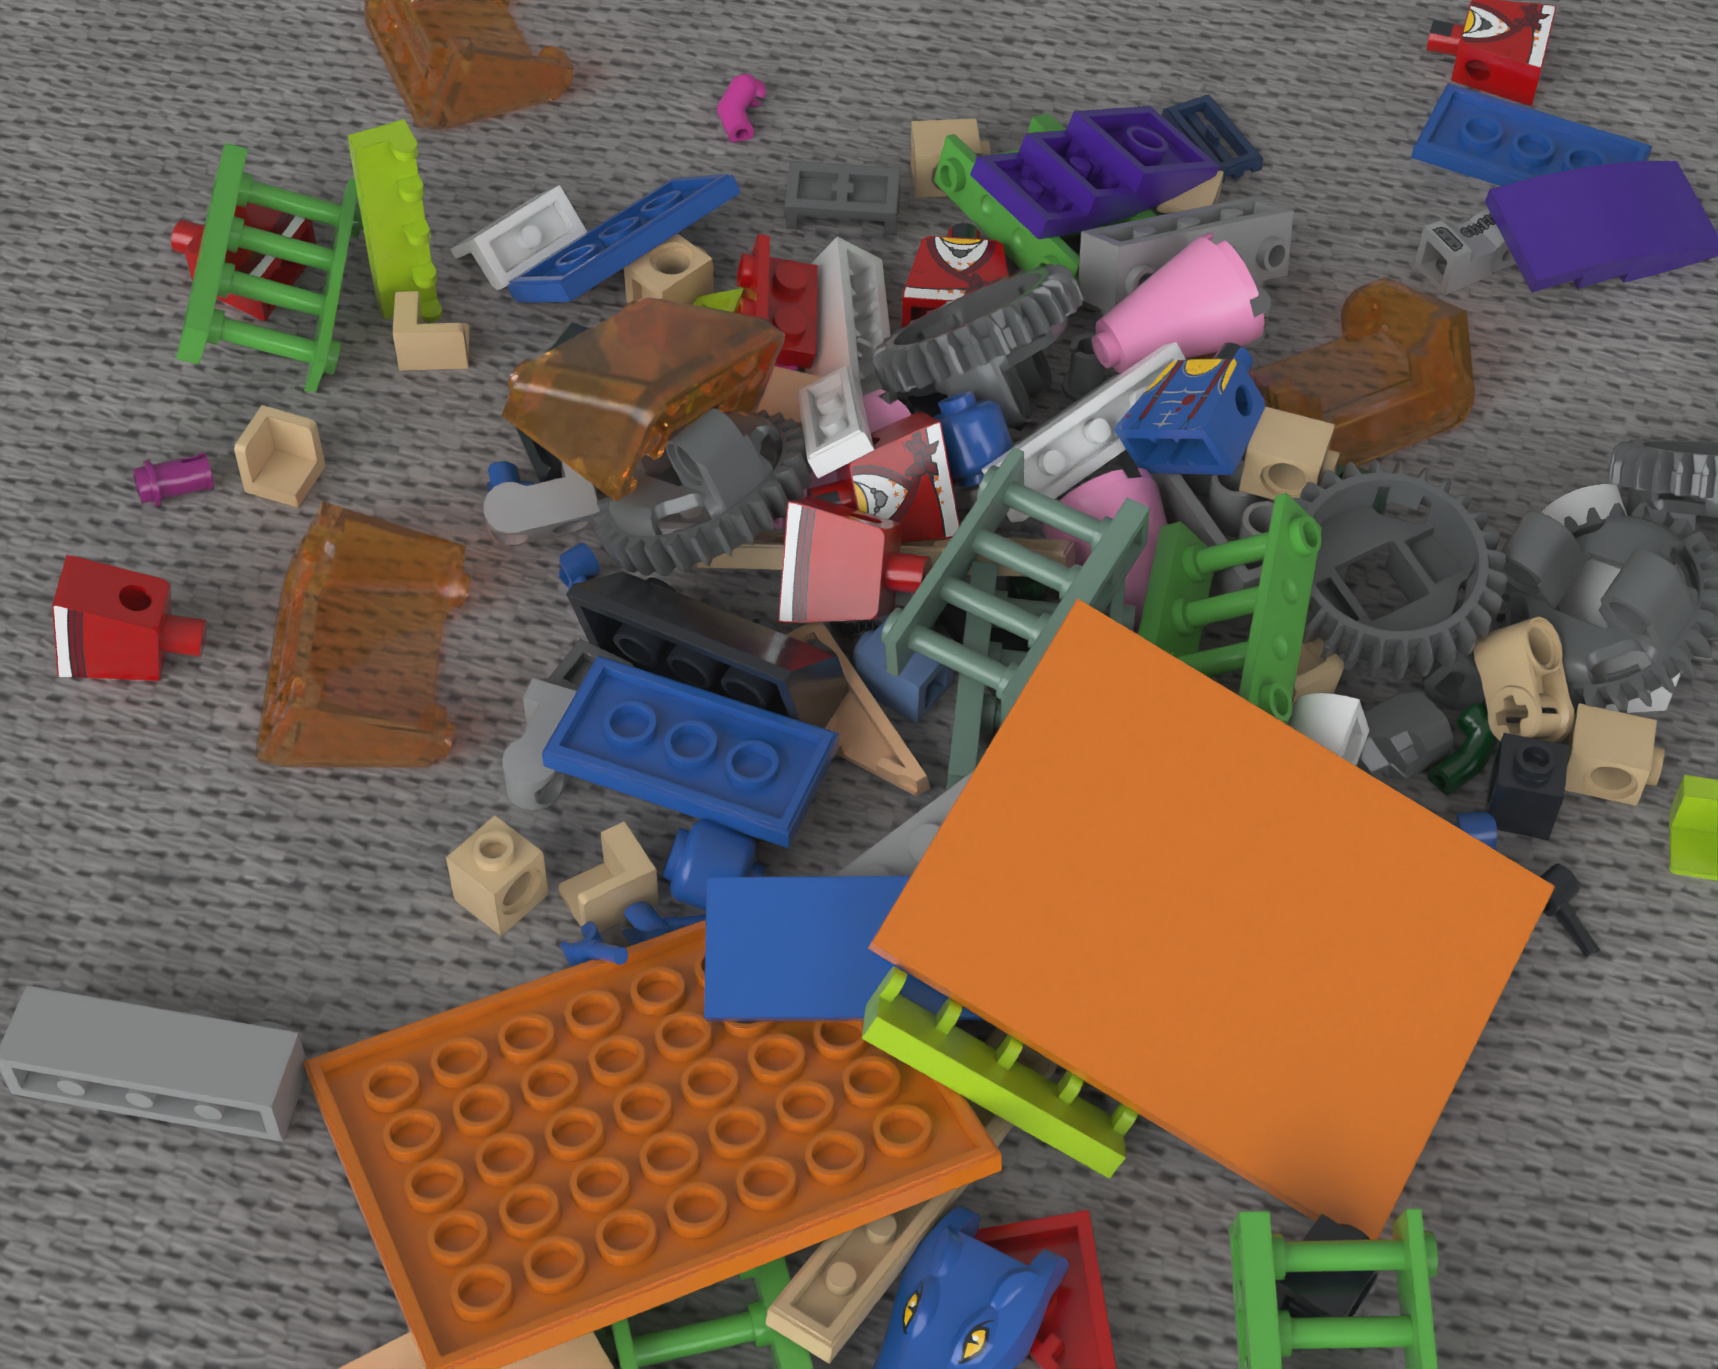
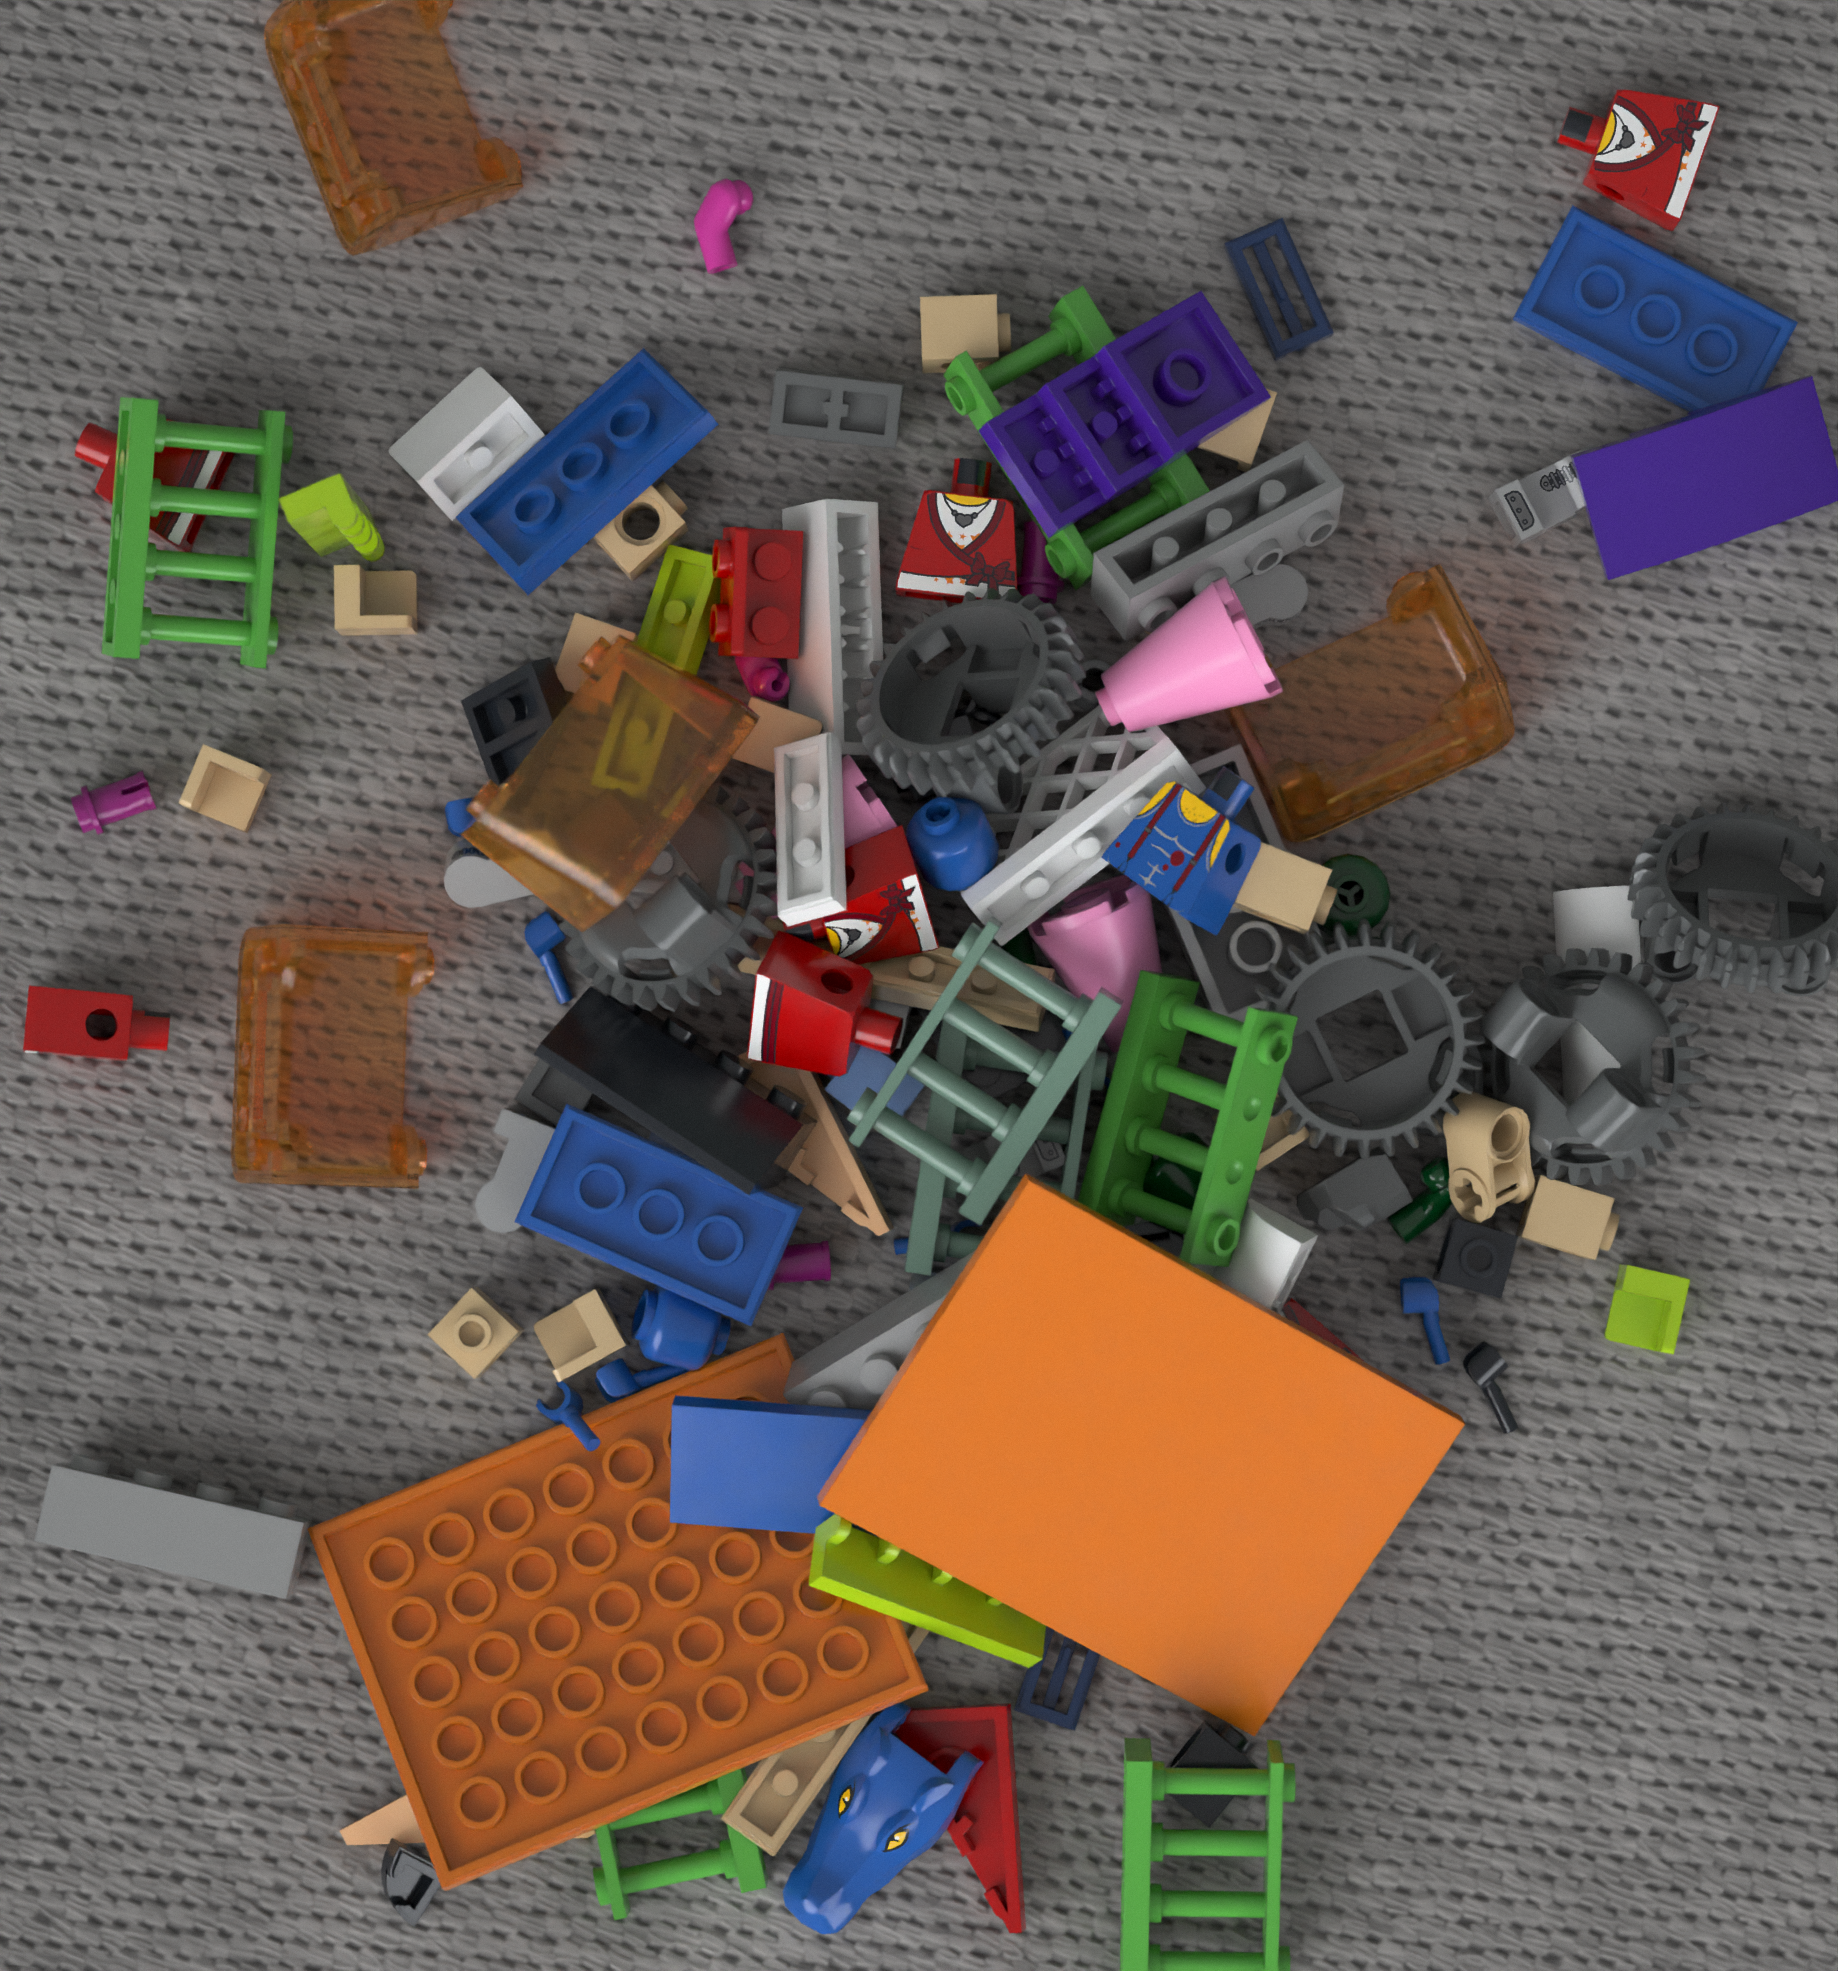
camera: 10 degrees right, 35 degrees up
(834, 820) = (803, 1264): none -> magenta pin
(1133, 1233) = (1047, 1709): none -> dark blue tile

